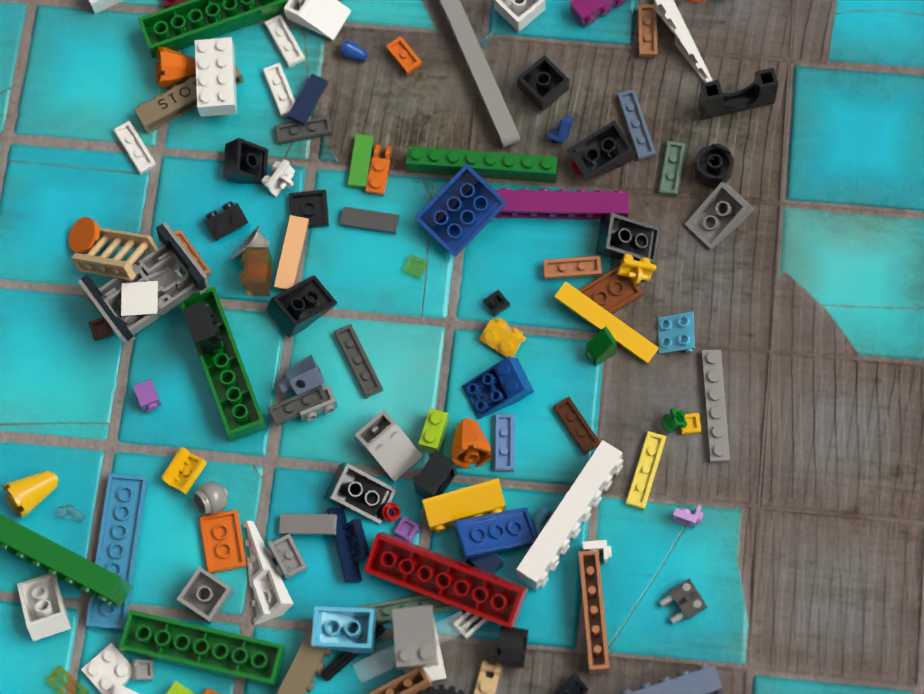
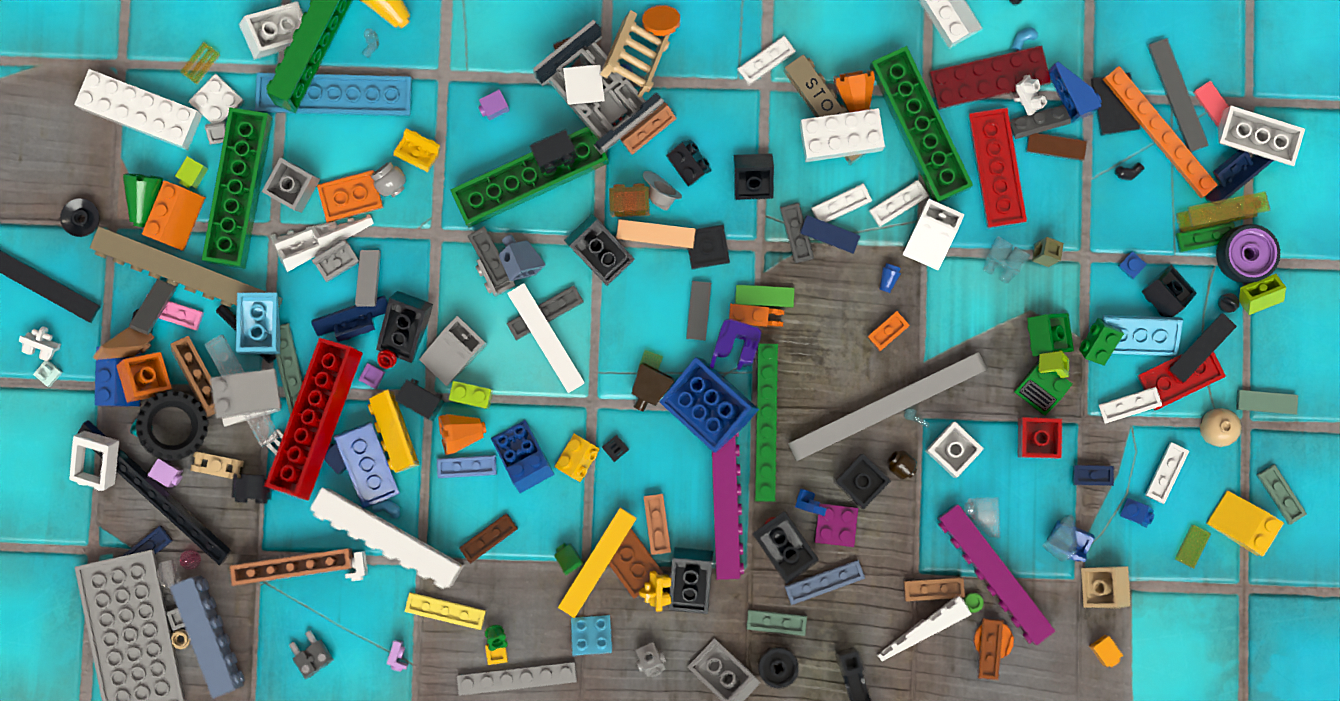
camera: 80 degrees right, 15 degrees up
(280, 179) = (738, 215): white hips -> none
(383, 358) = (546, 338): none -> white tile
(400, 183) = (734, 329): none -> dark purple animal
(438, 265) = (650, 386): none -> dark brown torso
(530, 50) = (902, 464): none -> dark brown head
(585, 109) = (837, 526): none -> magenta plate
(702, 278) = (650, 660): none -> light grey brick

